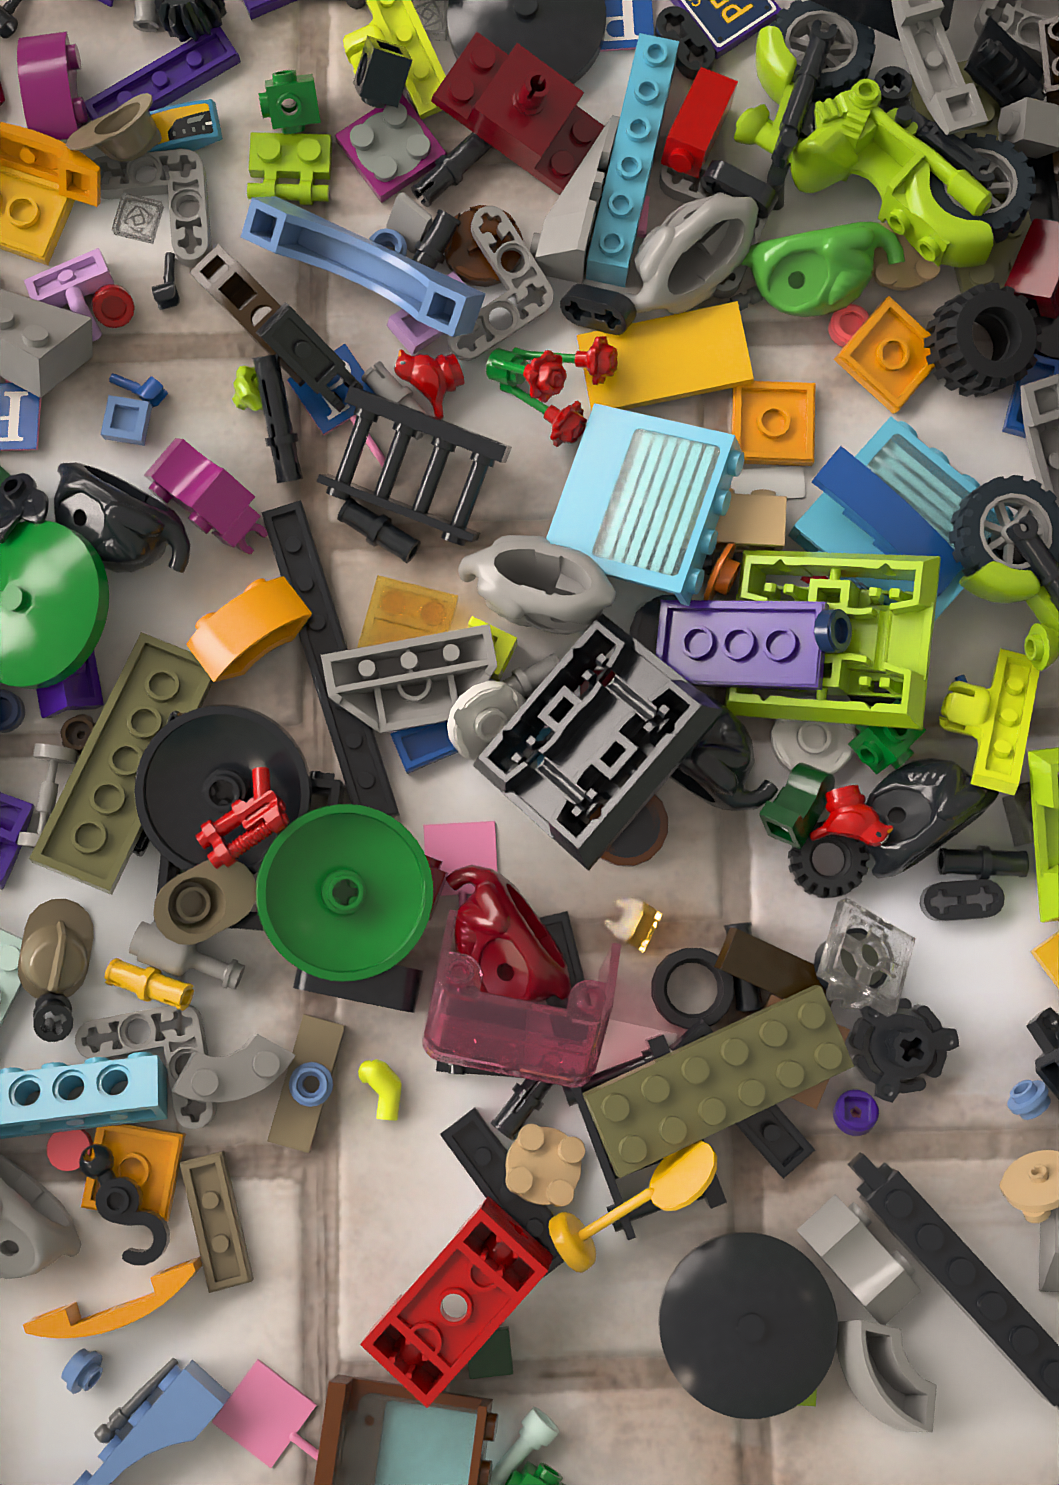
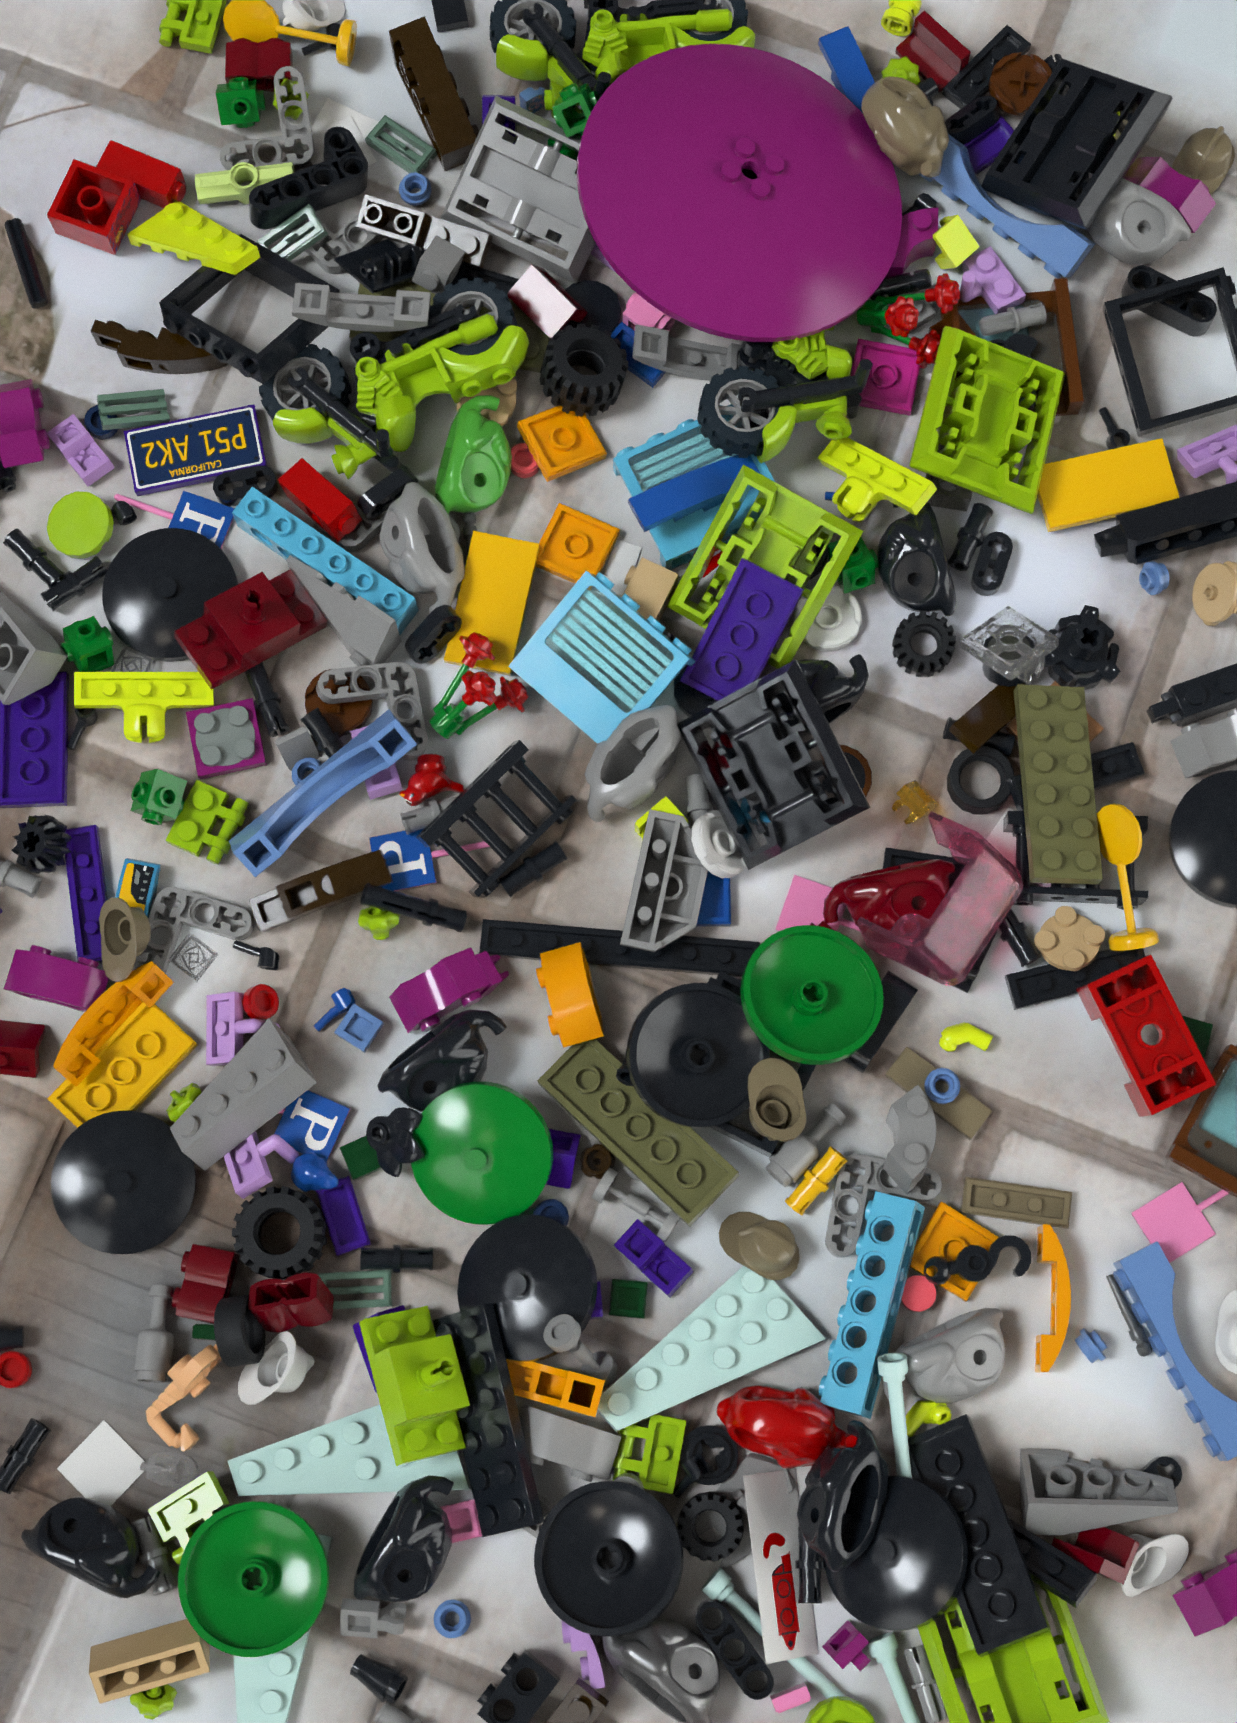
camera: 65 degrees left, 5 degrees down
(47, 1028) = (822, 1260): black bush -> none
(258, 816) = (731, 1029): red piece -> none
(306, 353) = (377, 860): black hinge -> none
(382, 72) = (173, 715): black brick -> none
(405, 612) = (609, 875): clear yellow wing -> none
(723, 573) = (680, 627): orange piece -> none
(797, 805) = (877, 645): dark green leg -> none
(833, 631) = (765, 561): tile -> none
(852, 818) = (904, 610): red animal -> none
(855, 1112) = (1116, 702): dark purple tile -> none

